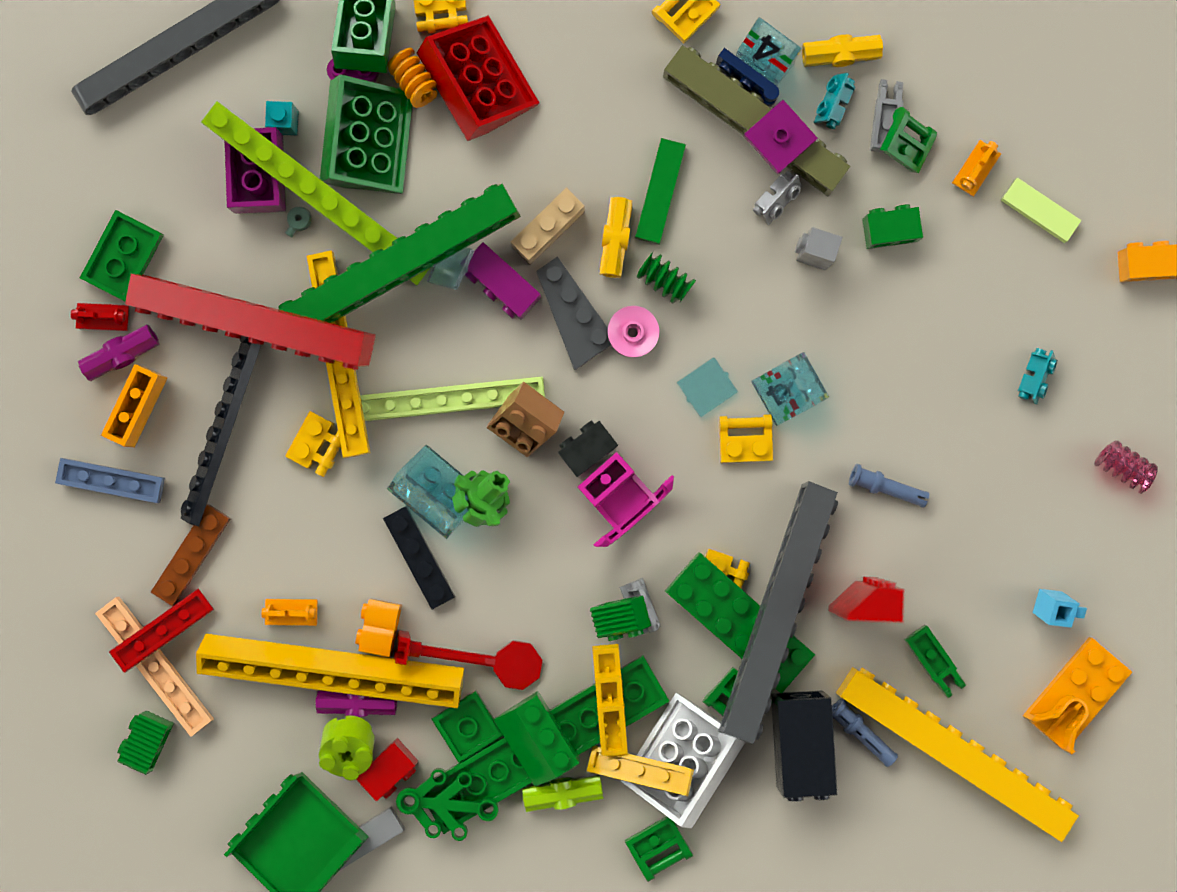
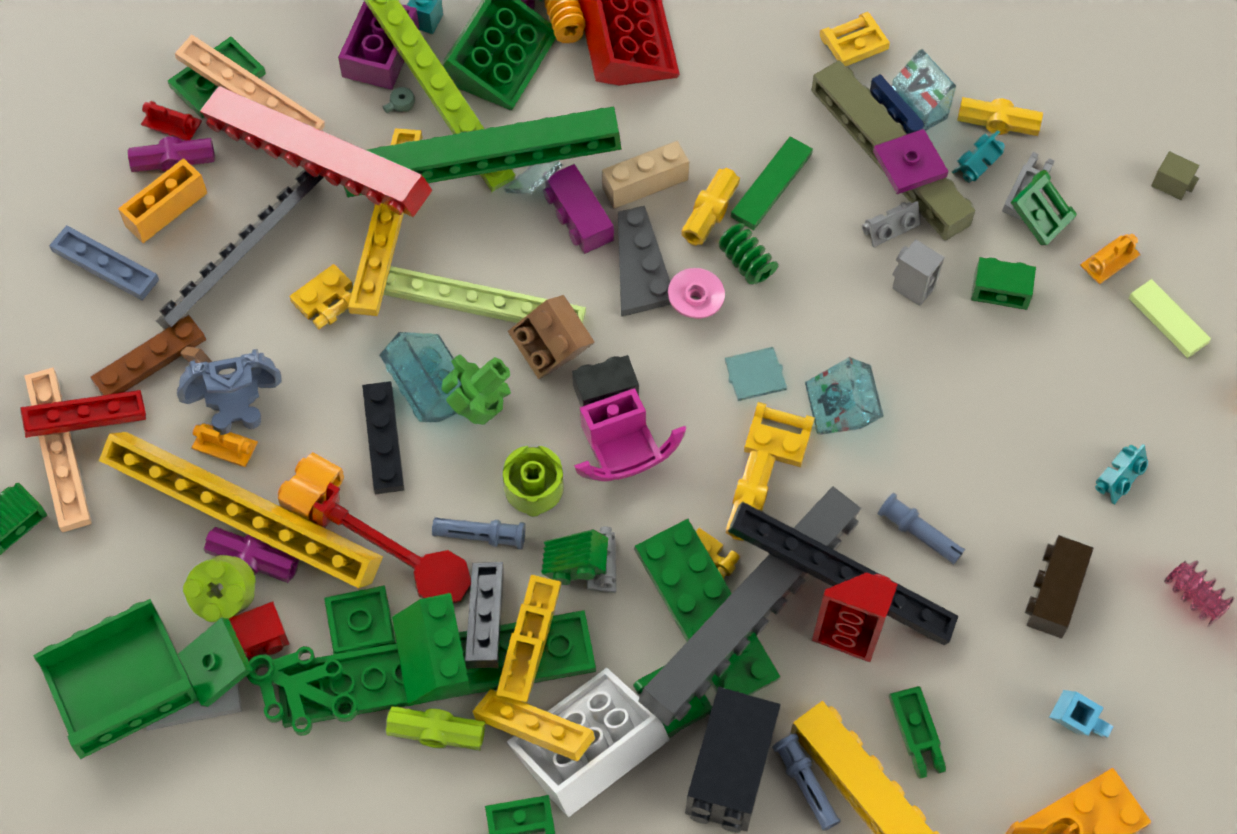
camera: 20 degrees right, 25 degrees down
(158, 264) = (233, 77): none -> light nougat plate
(233, 544) = (195, 354): none -> medium nougat tile
(274, 566) = (229, 392): none -> sand blue piece
(370, 809) = (215, 662): none -> green plate
(544, 613) = (493, 532): none -> sand blue pin
(565, 573) = (533, 479): none -> lime brick
(567, 692) = (484, 615): none -> plate
(741, 506) = (753, 486): none -> yellow piece
(841, 562) = (836, 568): none -> black plate
(1013, 499) = (1058, 586): none -> dark brown brick
(1014, 61) = (1176, 176): none -> olive brick

